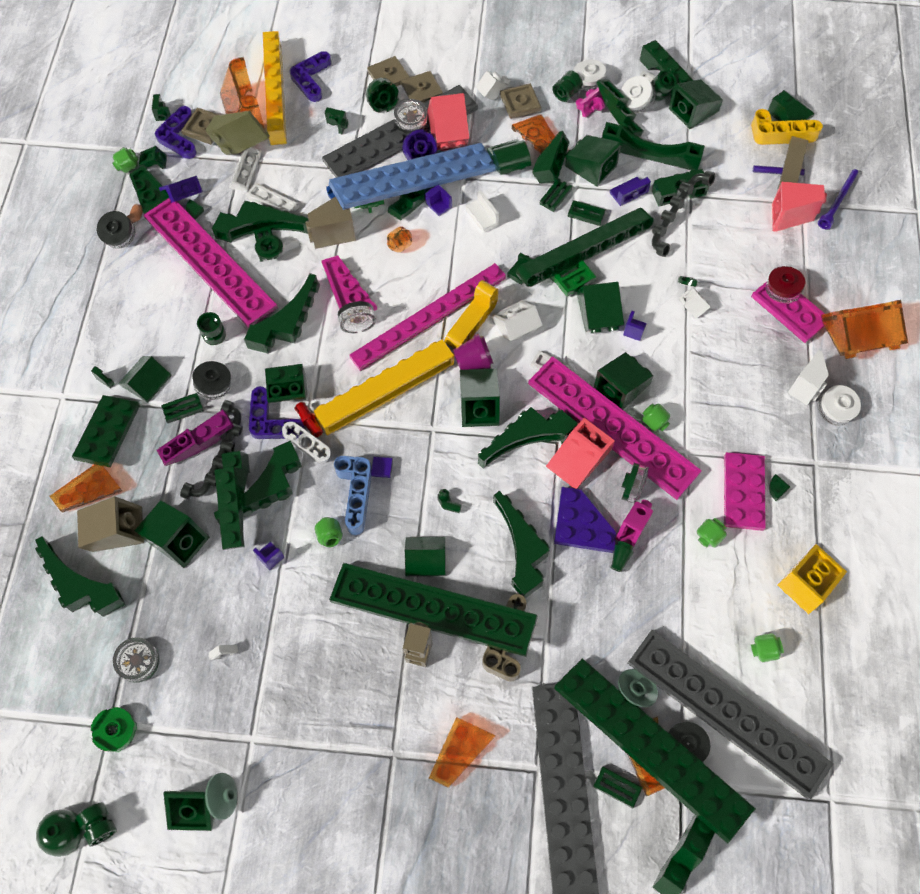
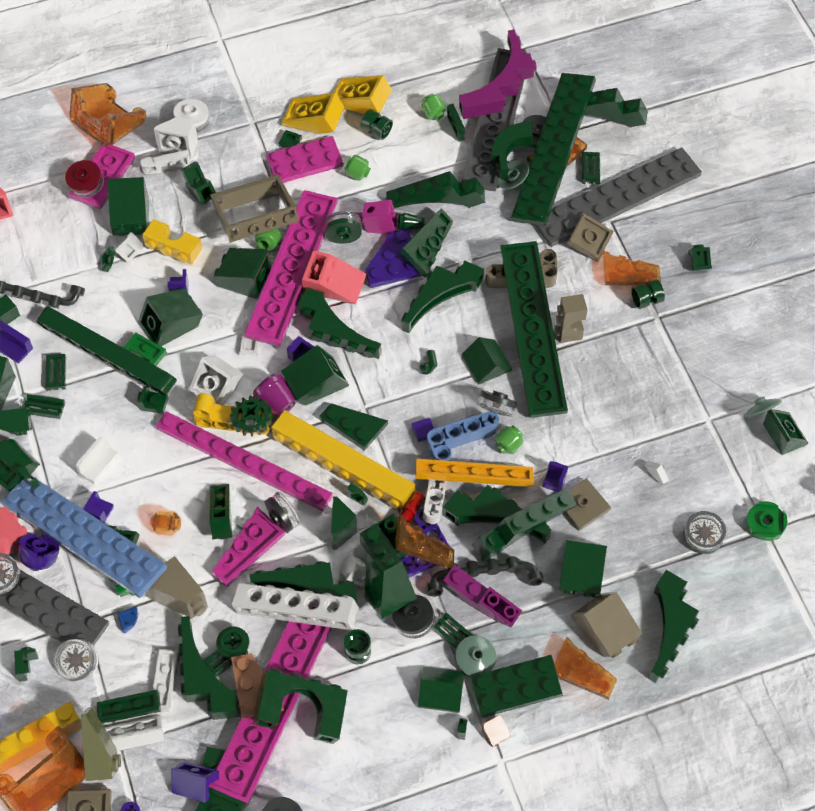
camera: 115 degrees left, 5 degrees down
(85, 401) = (495, 730): none -> slope
(158, 415) = (468, 662): none -> sand green dish
(185, 290) = (328, 700): none -> dark green arch
(220, 245) = (248, 681): none -> nougat wing
(232, 568) = (589, 504): none -> dark tan plate
(244, 366) = (386, 582): none -> dark green slope
(261, 403) = (415, 543): none -> clear orange wing
(263, 170) = (129, 706): none -> dark green tile
(266, 295) = (342, 618): none -> white brick
(278, 356) = (355, 569): none -> white panel
(310, 485) = (474, 472): none -> light orange plate
(318, 147) = (75, 660): none -> clear piece
(324, 356) = (343, 523): none -> dark green slope
(348, 384) = (357, 494): none -> dark green tile
(366, 533) = (497, 403): none -> piece
(387, 279) = (220, 512): none -> dark green slope
(418, 411) = (353, 425): none -> dark green wing
(418, 755) = (646, 294): none -> dark green wheel
(439, 843) = (700, 257): none -> dark green bracket
(458, 322) = (251, 414): none -> dark green gear
(486, 156) = (23, 472): none -> dark green tile
(514, 398) = (298, 348): none -> dark purple panel
(519, 730) = (590, 237): none -> dark tan plate
(585, 558) = (427, 242): none -> dark green wing
(642, 596) = (439, 189): none -> dark green arch
(677, 692) = (509, 139): none -> dark green arch
(695, 327) = (184, 249): none -> yellow arch
(718, 412) = (249, 193): none -> dark tan window
(738, 312) = (128, 205): none -> dark green slope
(738, 662) = (455, 122): none -> dark green tile
(744, 381) = (197, 184): none -> dark green brick
(761, 576) = (376, 124): none -> dark green wheel
(786, 364) = (165, 162): none -> white hinge
(788, 766) = (491, 97): none -> magenta arch
(801, 521) = (314, 113): none -> yellow slope

